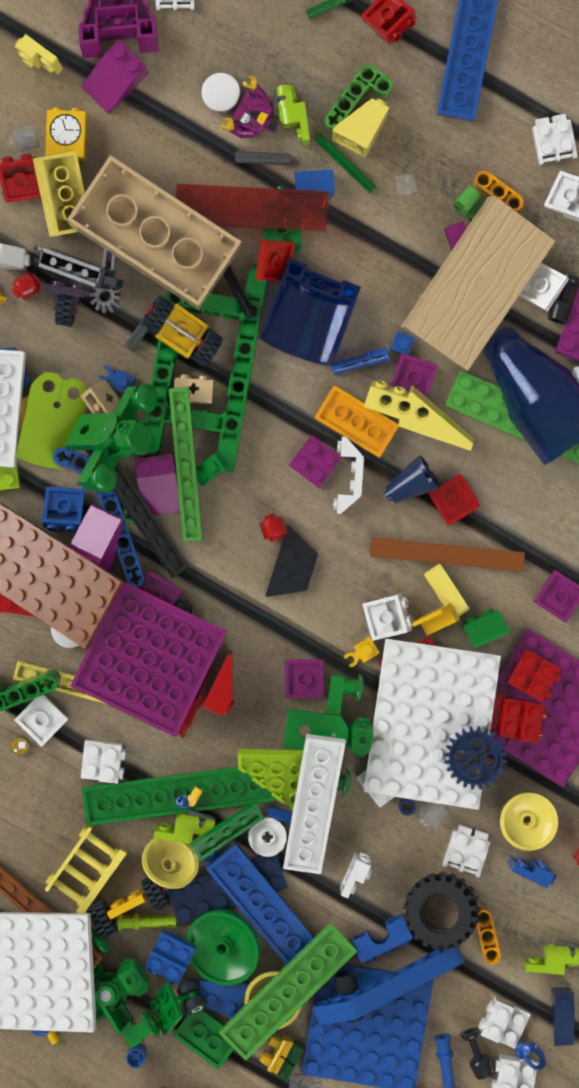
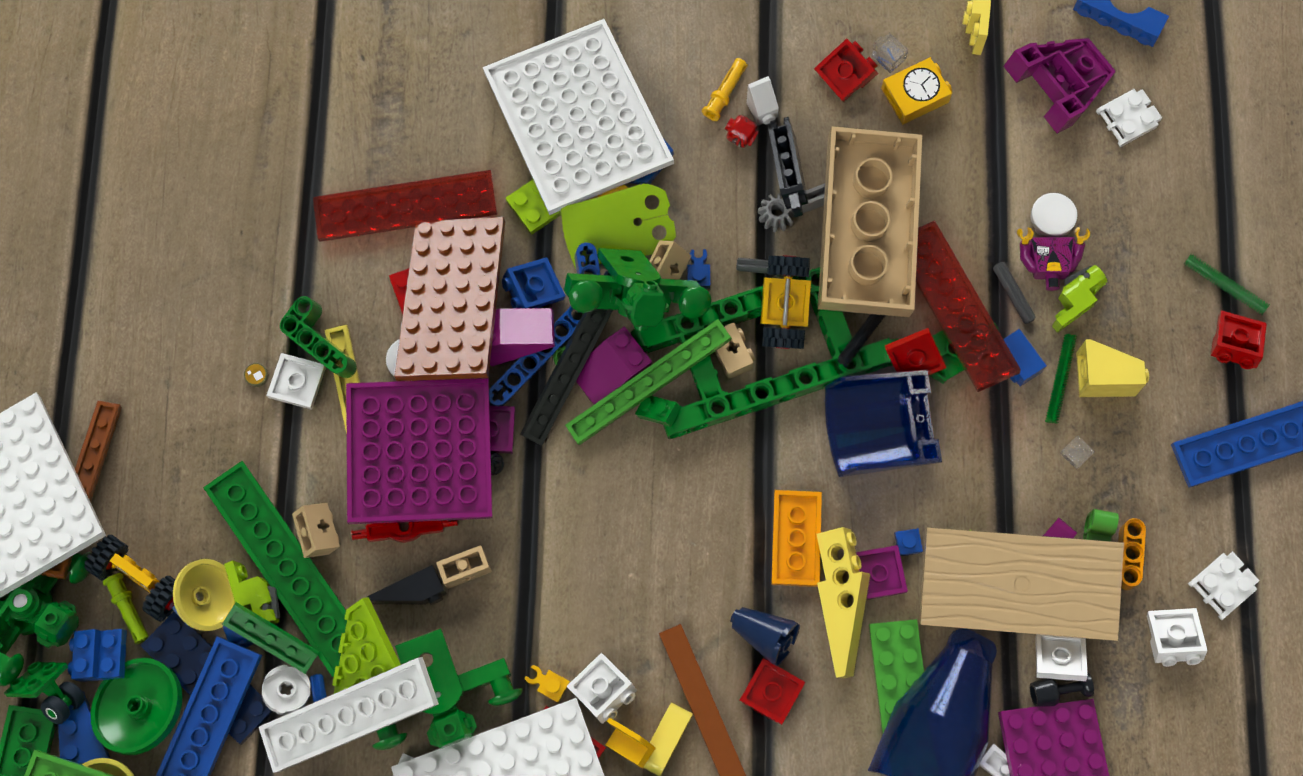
camera: 65 degrees right, 15 degrees down
(59, 189) = (860, 107): light yellow slope -> none
(66, 301) = (749, 175): plate -> none
(103, 761) = (283, 468): white plate -> none
(104, 870) = (162, 534): light yellow fence -> none
(114, 76) = (1004, 105): magenta slope -> none
(164, 760) = (316, 530): none -> tan brick
(189, 800) = (285, 581): arm -> none
(221, 694) = (424, 549): red slope -> none
(246, 708) = (415, 589): none -> black slope
(249, 668) = (464, 567): none -> tan brick
(273, 527) = (631, 511): red head -> none
(293, 566) = (602, 555): black wing -> none
(304, 678) = (484, 634): magenta plate -> none
(315, 461) = (728, 518): magenta plate -> none
(347, 449) = (703, 573): white slope -> none
(354, 100) = (1152, 355): bright green beam -> none
(369, 357) = (874, 514): blue pin -> none

